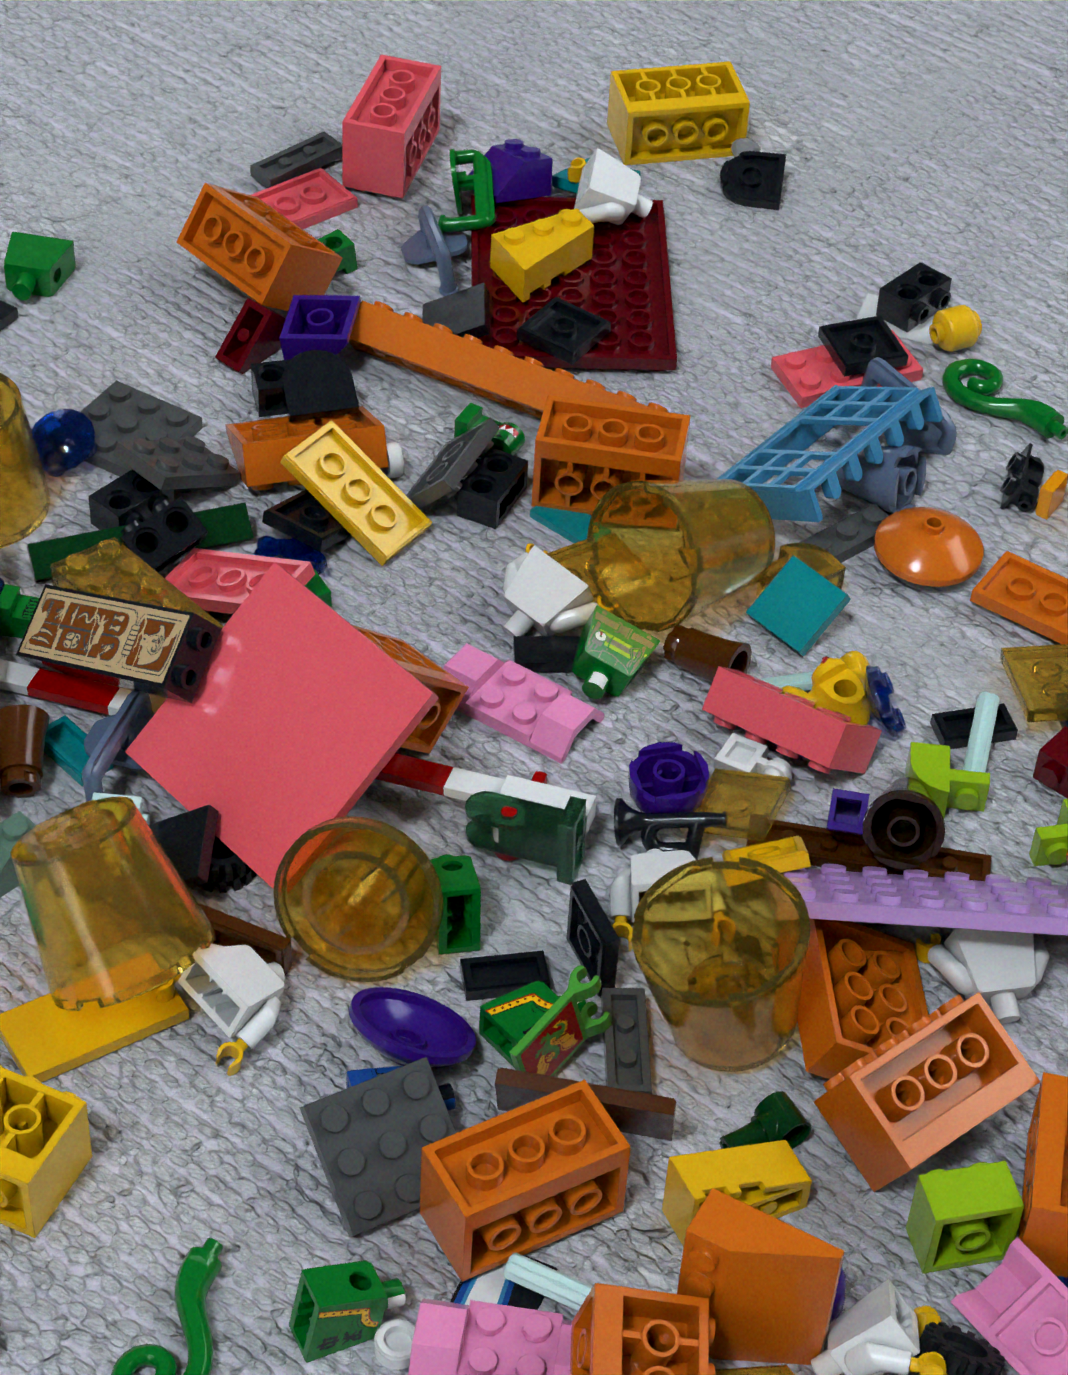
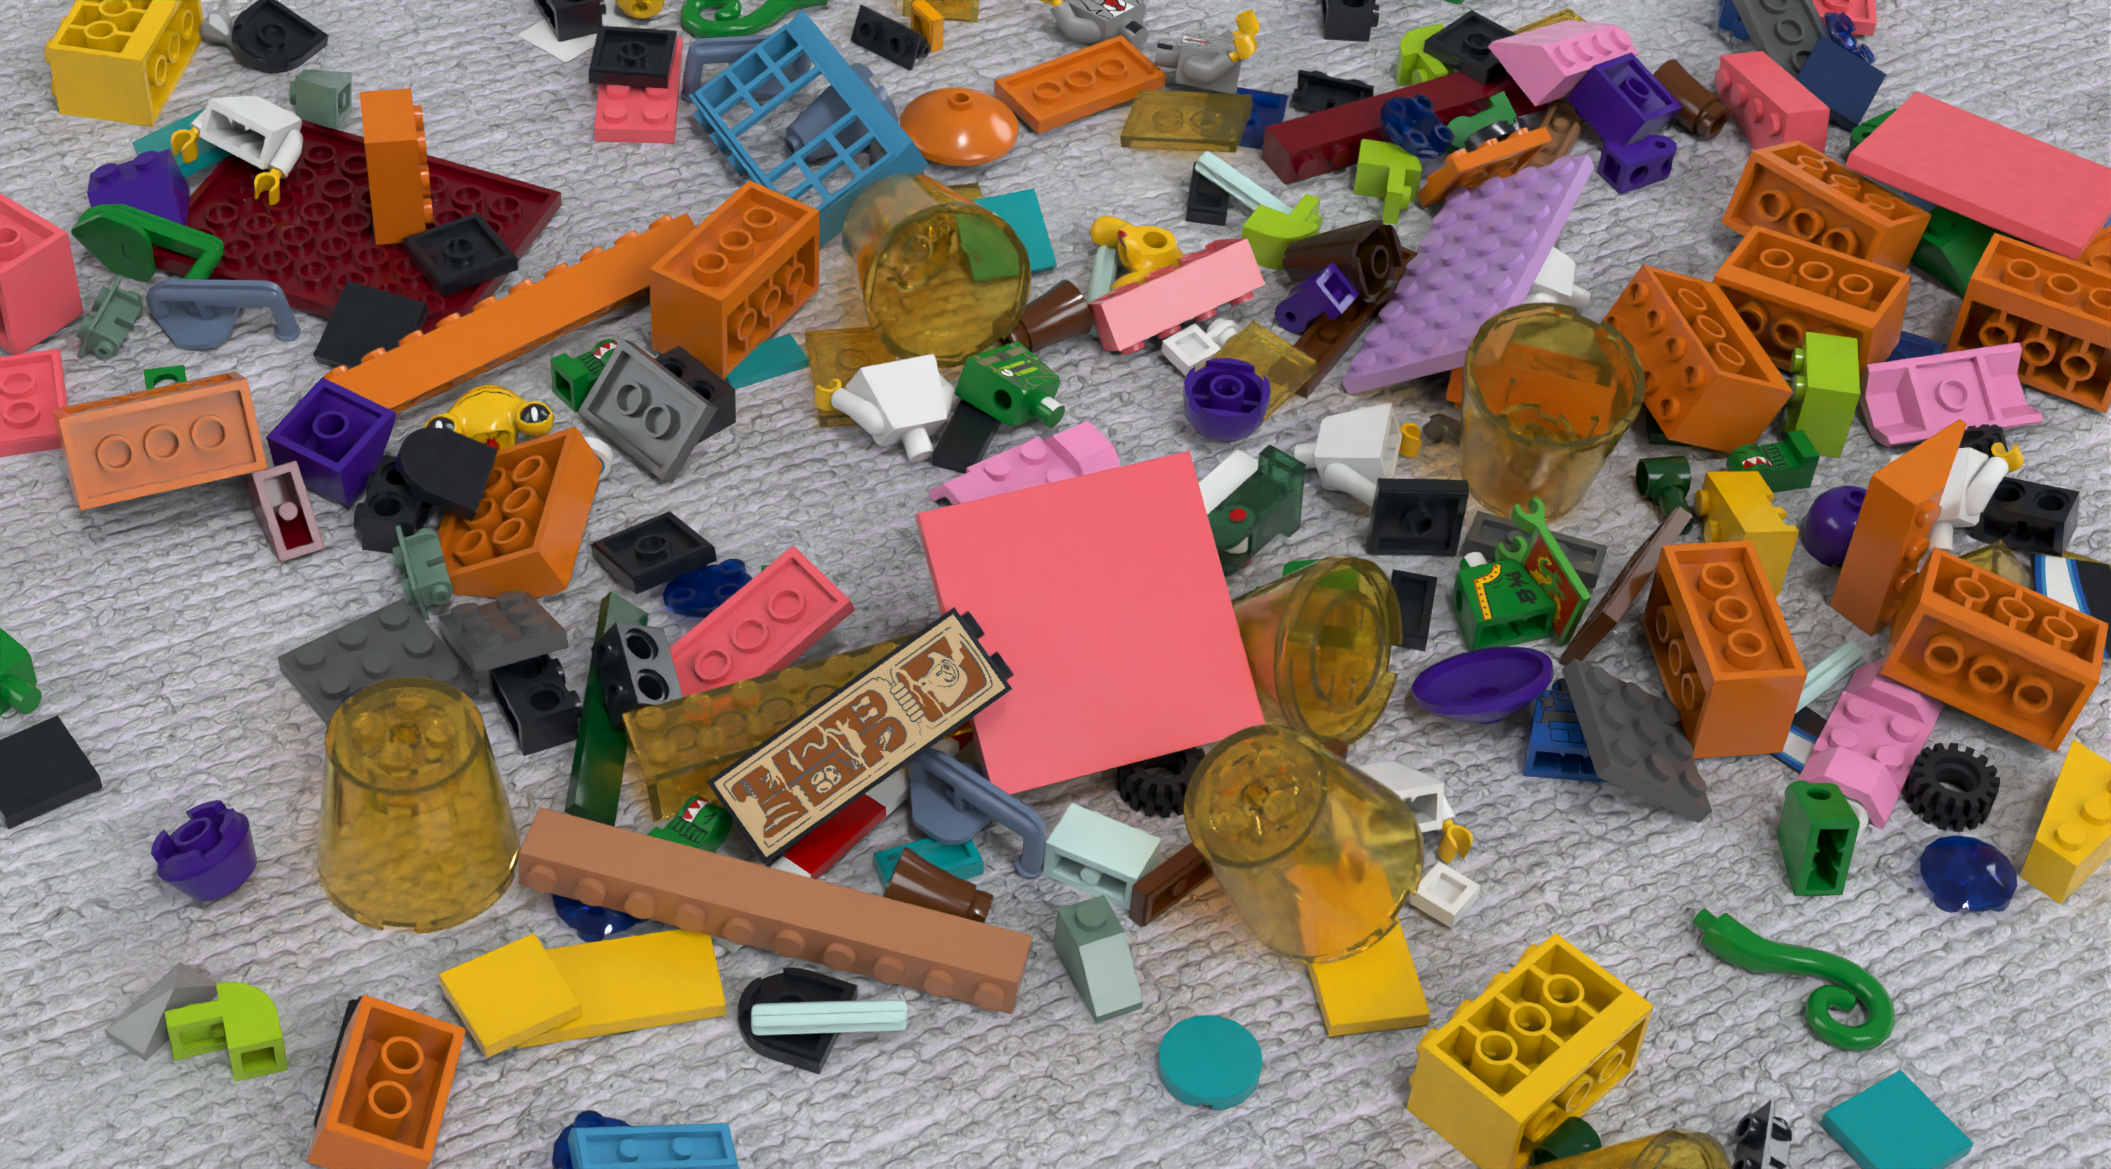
camera: 70 degrees left, 0 degrees up
(165, 1061) = (1445, 894): none -> white plate
(189, 842) = (1155, 792): black tile -> none
(228, 411) = (426, 569): none -> sand green hinge
(356, 492) = (652, 493): yellow tile -> none
(383, 206) = (112, 307): none -> sand green hinge
(395, 396) = (495, 417): none -> yellow head
(541, 250) = (326, 222): yellow wedge -> none
(593, 250) = (393, 157): none -> orange brick
(629, 821) = (1283, 406): black piece -> none
(693, 218) = (322, 96): none -> sand green slope
(779, 854) = (1356, 371): yellow tile -> none
(854, 1207) = (1781, 464): none -> green leg
(878, 688) = (1188, 231): clear blue dish -> none

